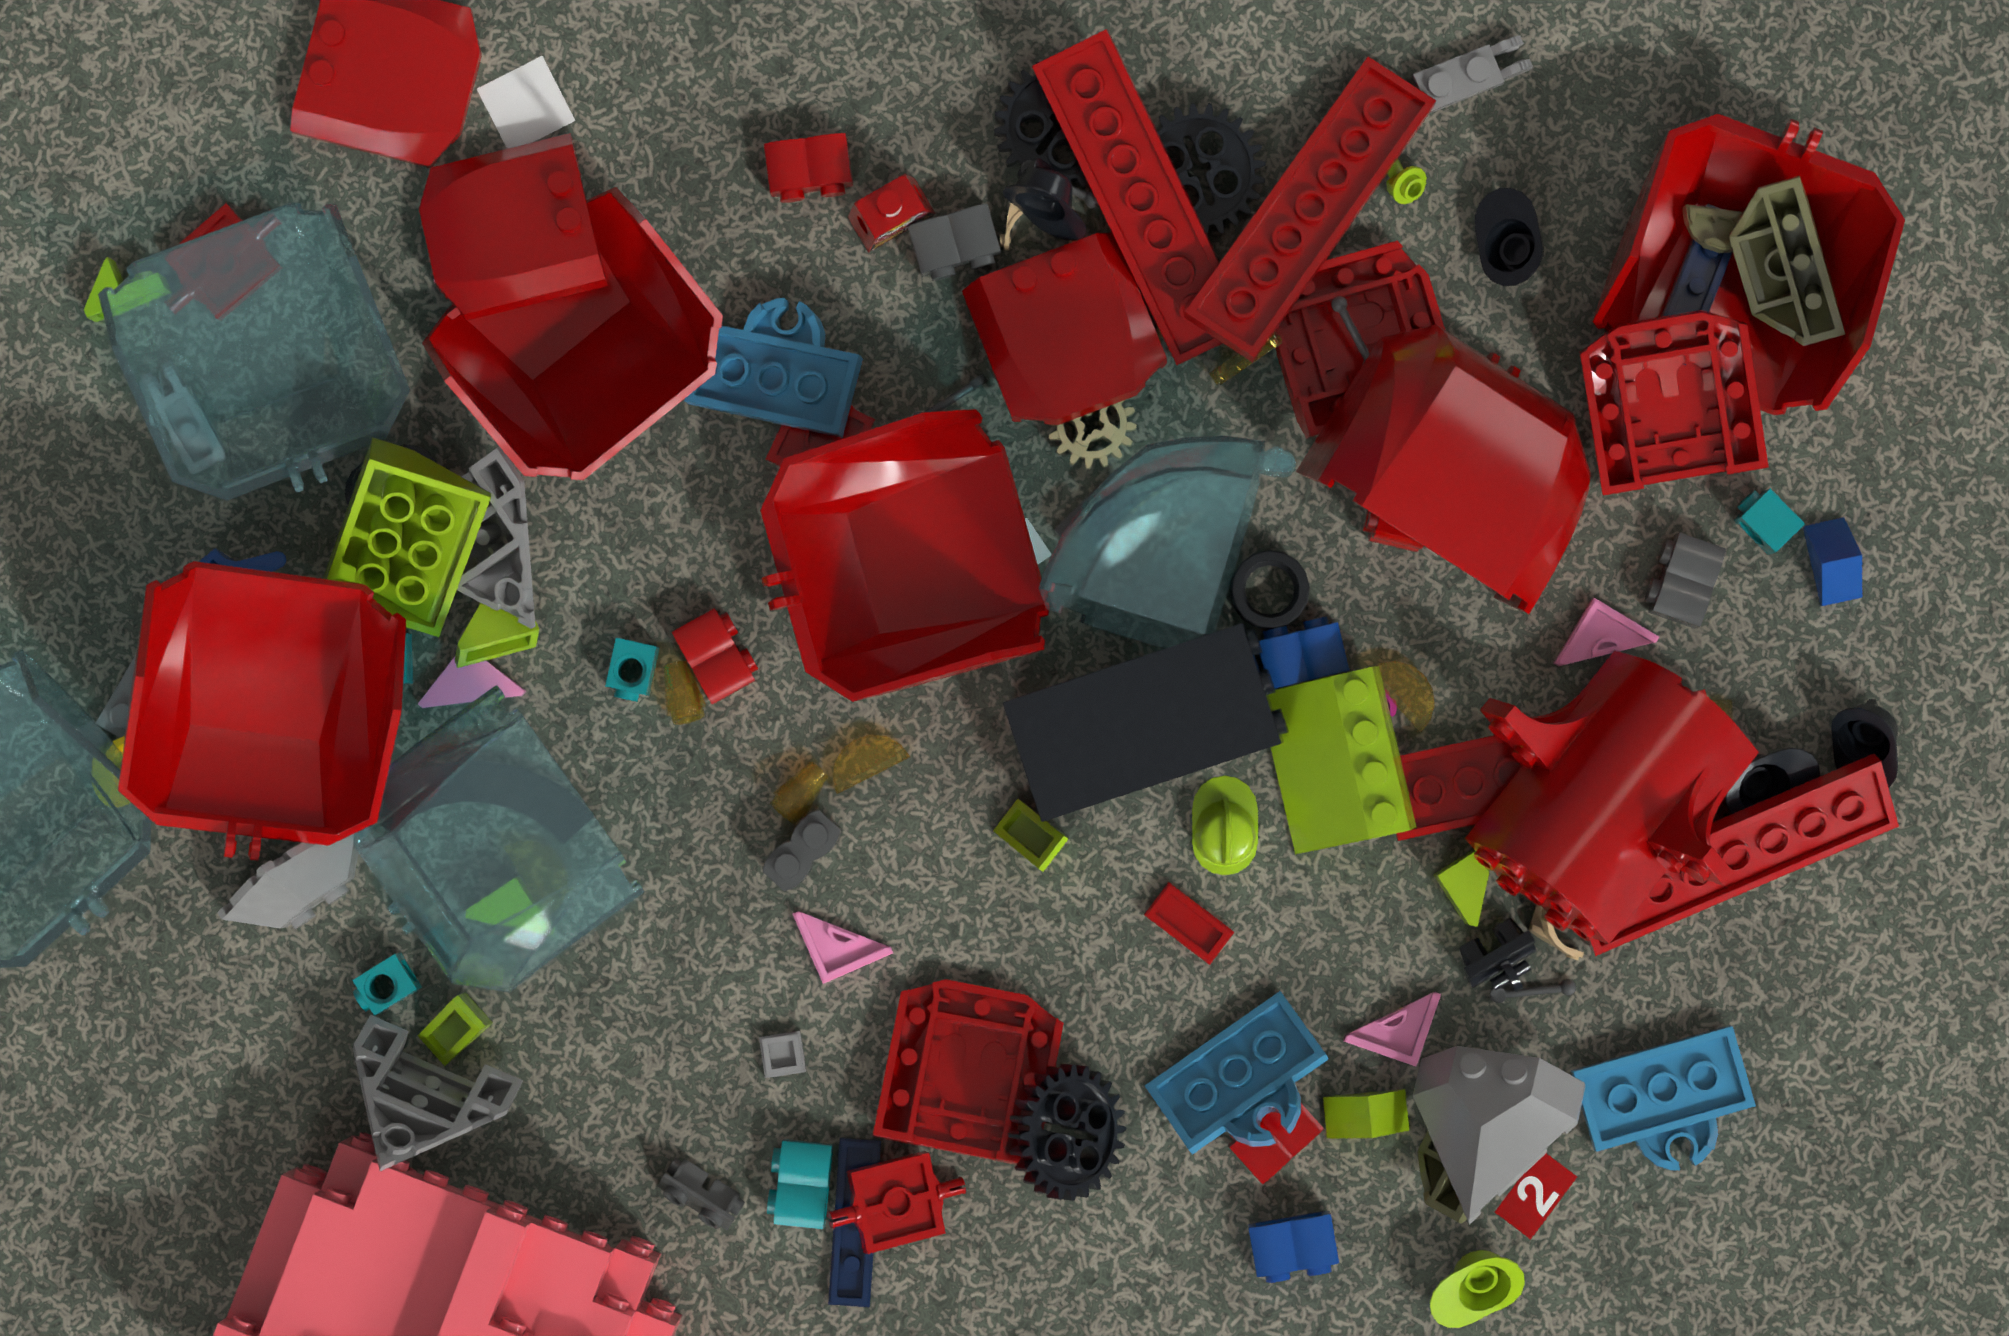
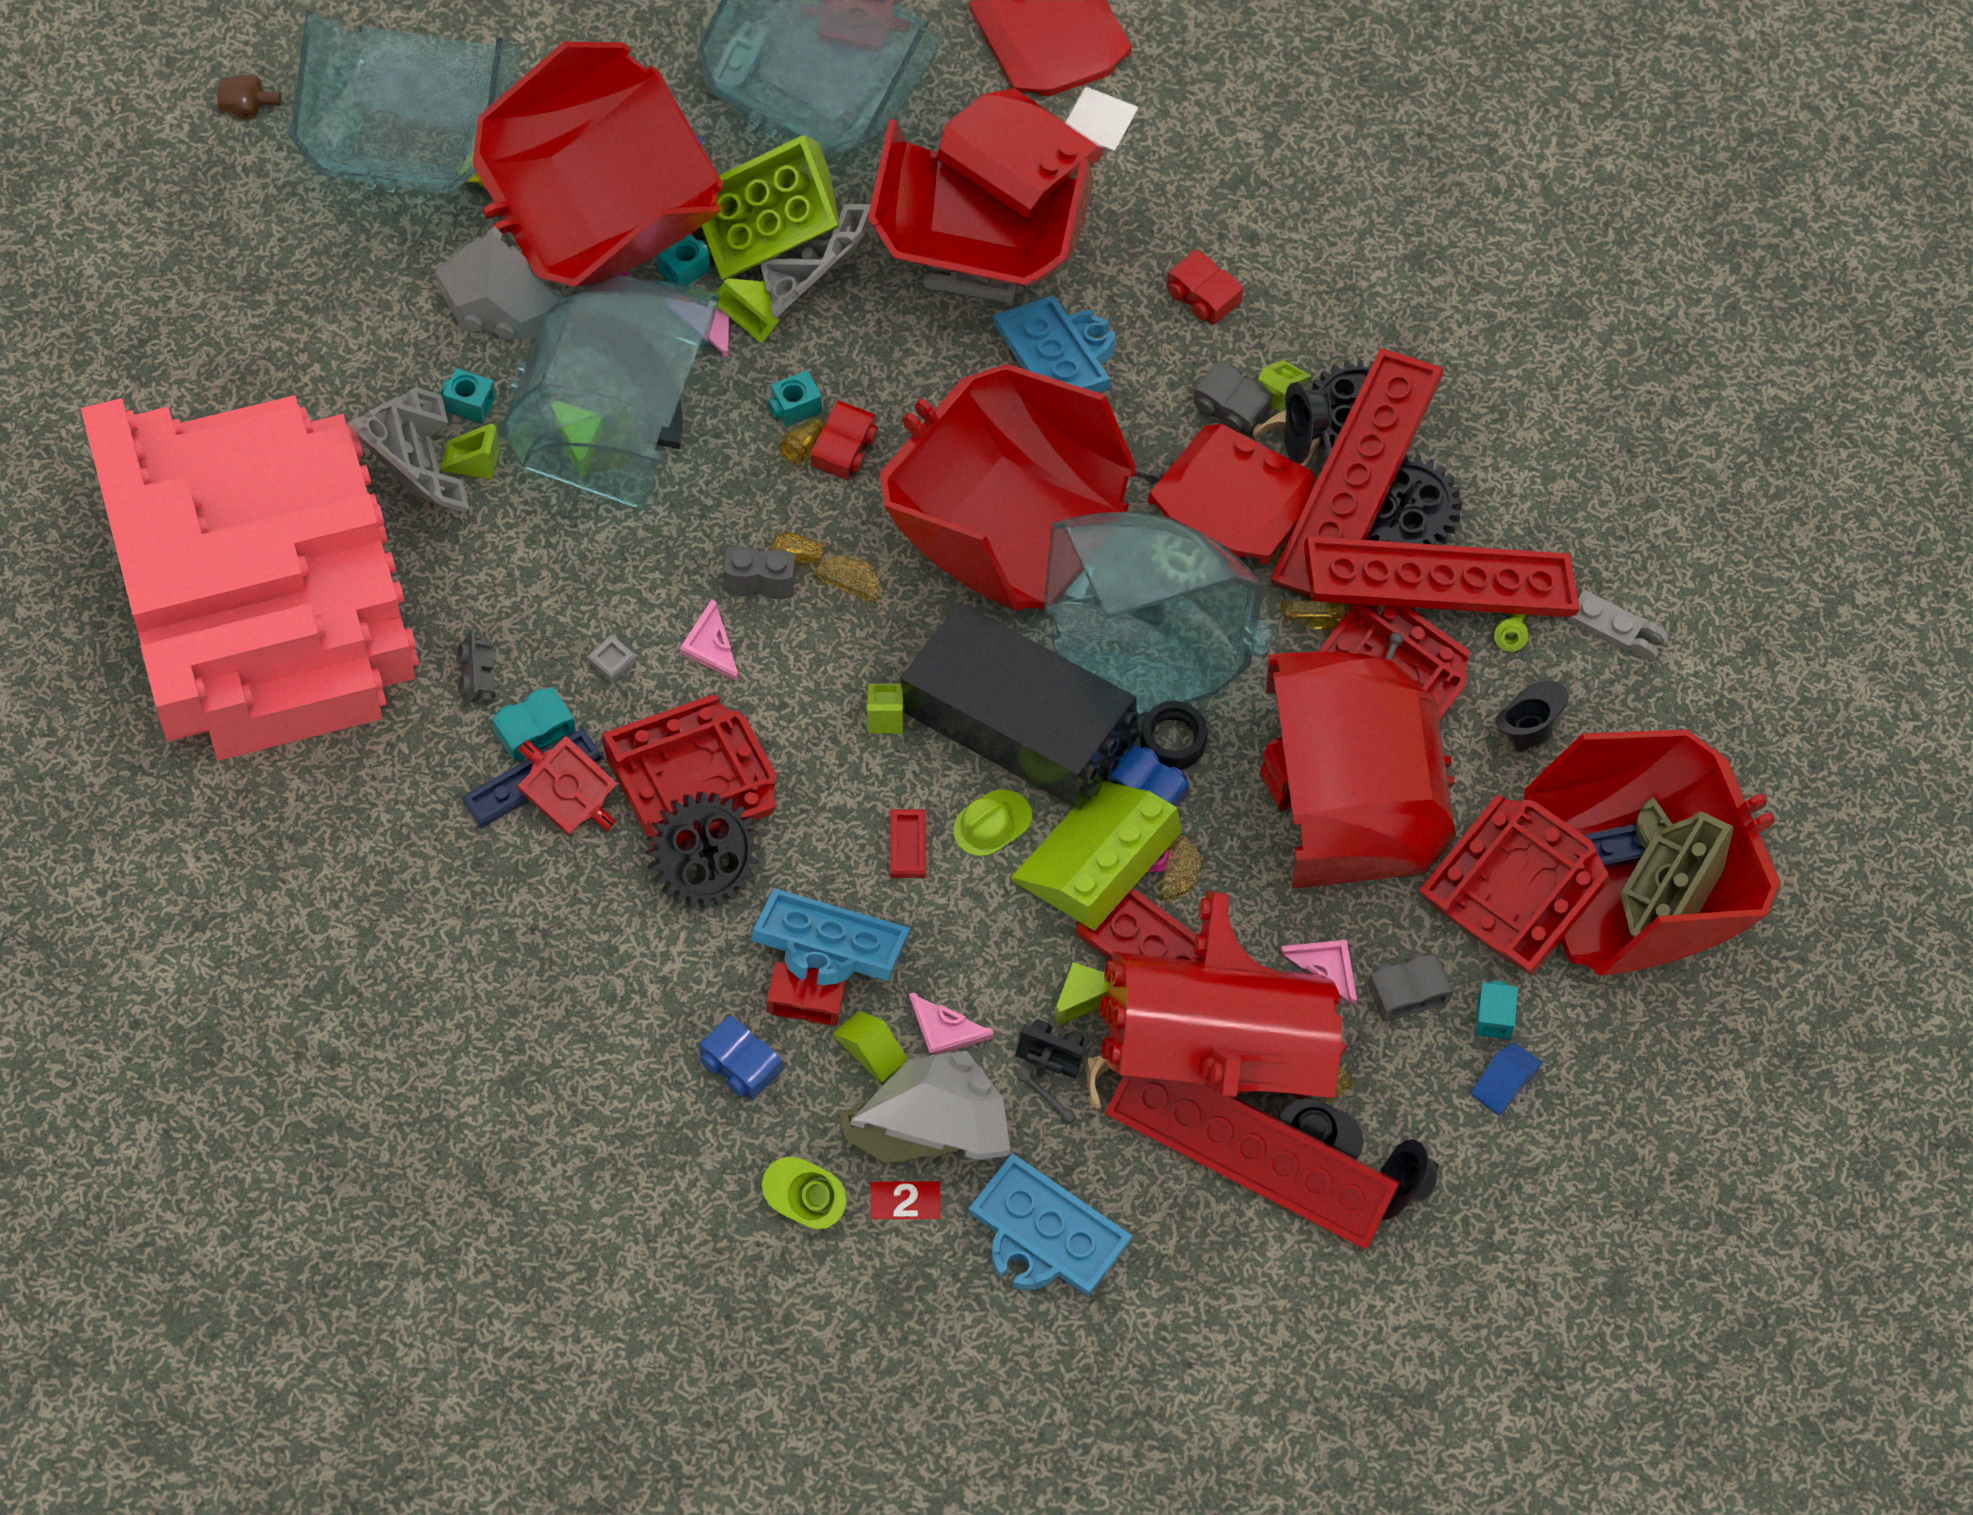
camera: 50 degrees right, 25 degrees down
(889, 211) = (1218, 340): red torso -> none
(973, 174) = (1277, 379): none -> lime slope

